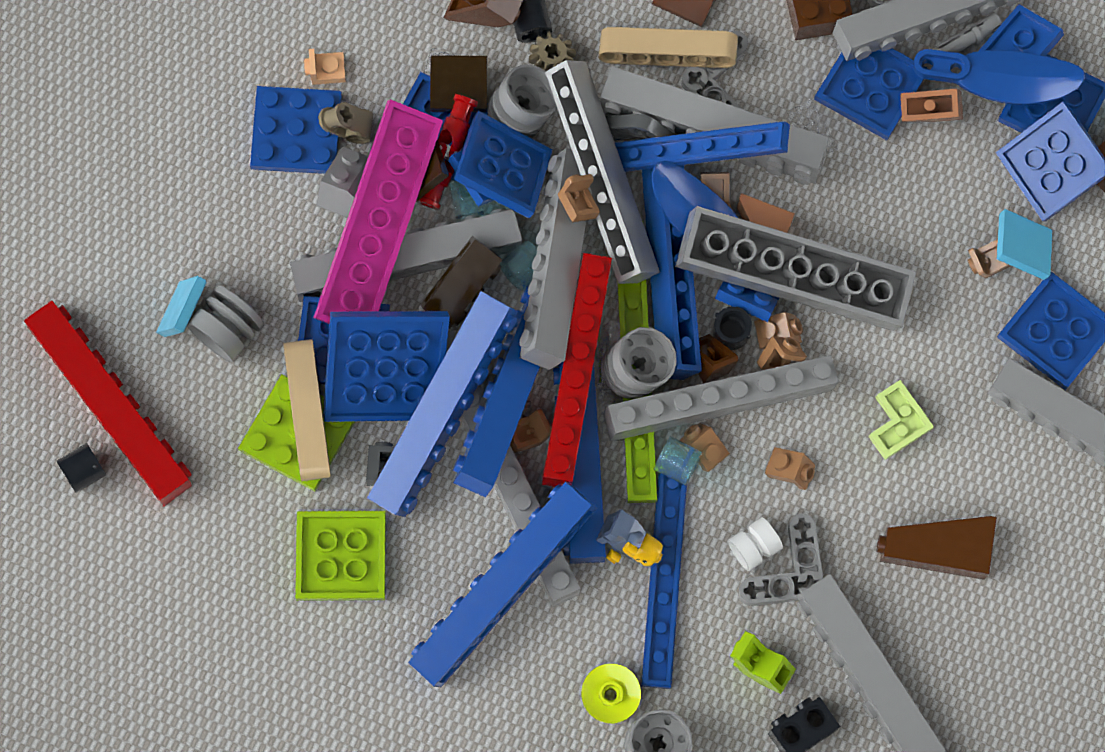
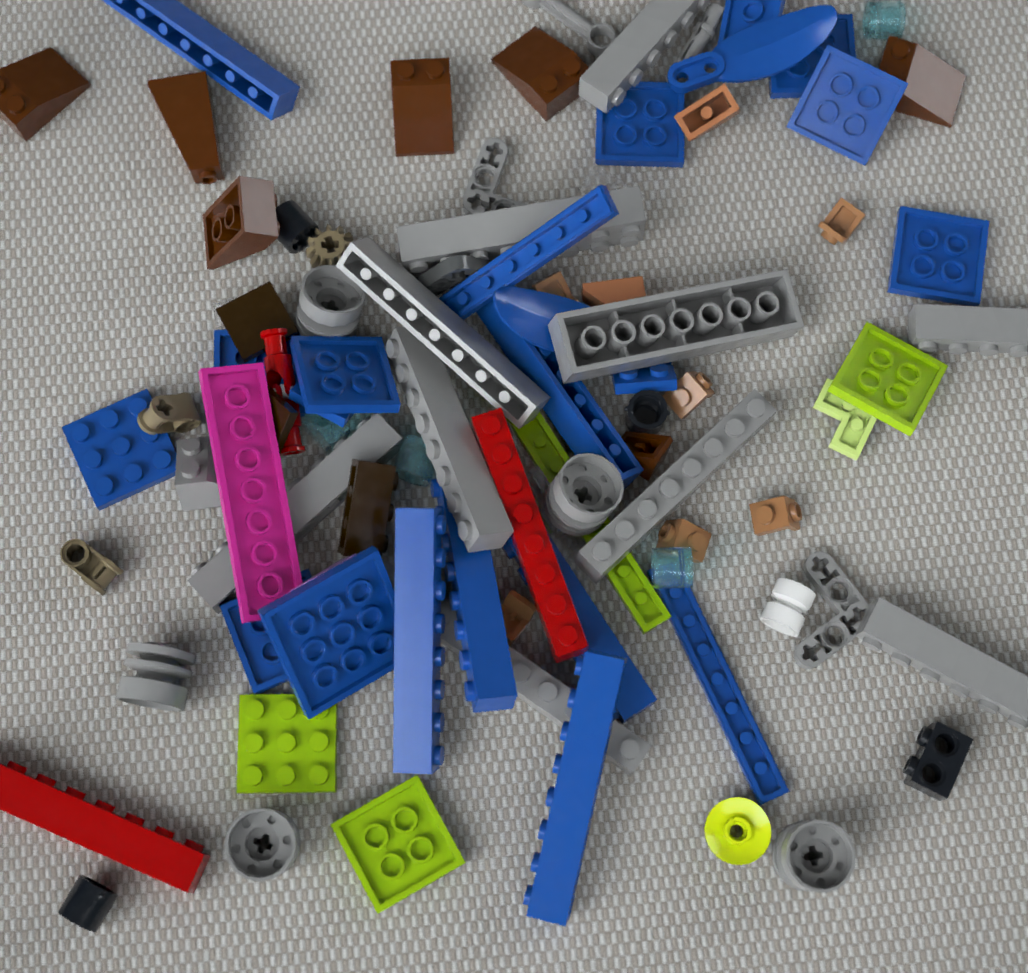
camera: 25 degrees left, 0 degrees up
(181, 306) = (103, 683): medium azure tile -> none
(222, 213) = (93, 568): none -> dark tan piece
(225, 483) = (244, 852): none -> light grey wheel
(307, 410) = (285, 718): tan beam -> none
(325, 67) = (119, 374): light nougat bracket -> none
(374, 464) = (382, 735): dark grey bracket -> none
(577, 198) = (436, 369): medium nougat bracket -> none
(628, 536) = (668, 667): piece -> none
(668, 47) = (435, 185): tan beam -> none
(762, 663) = (863, 719): lime brick -> none
(780, 353) = (705, 411): medium nougat bracket -> none
(946, 546) = (964, 509): reddish brown slope -> none
(950, 407) = (888, 378): none -> lime plate
(1024, 244) = (864, 194): medium azure tile -> none

